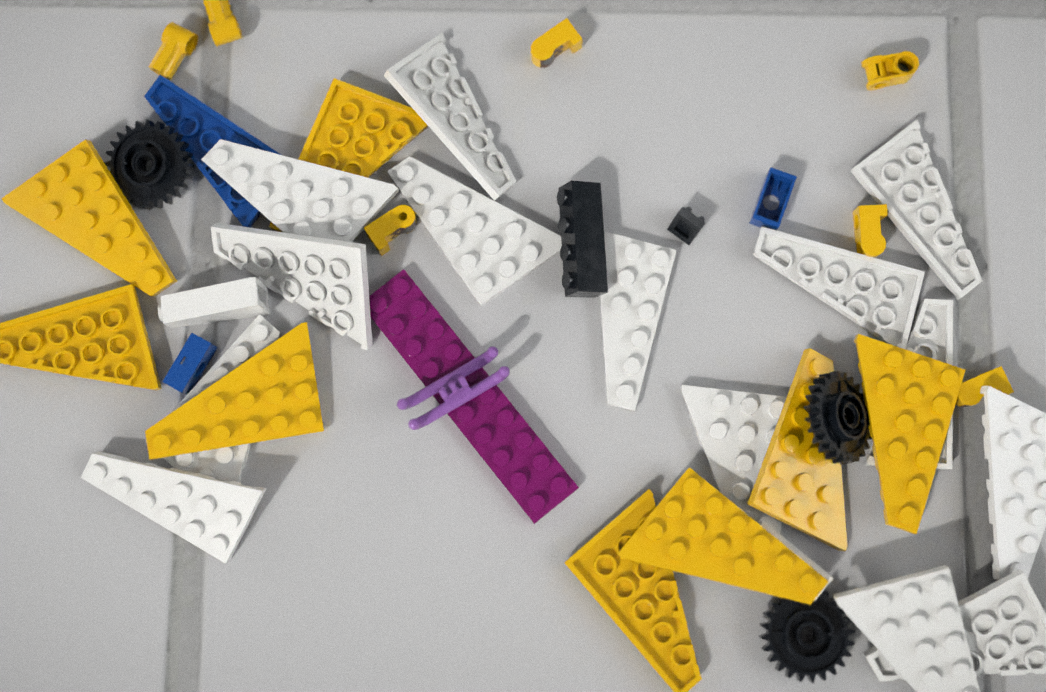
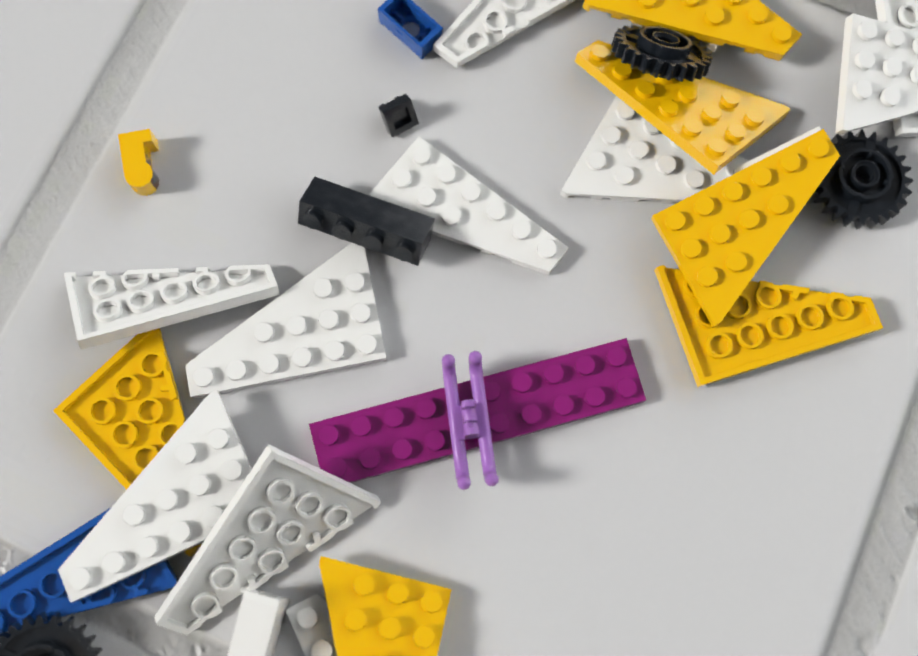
camera: 75 degrees left, 5 degrees down
(389, 226) = (253, 420): yellow leg -> none

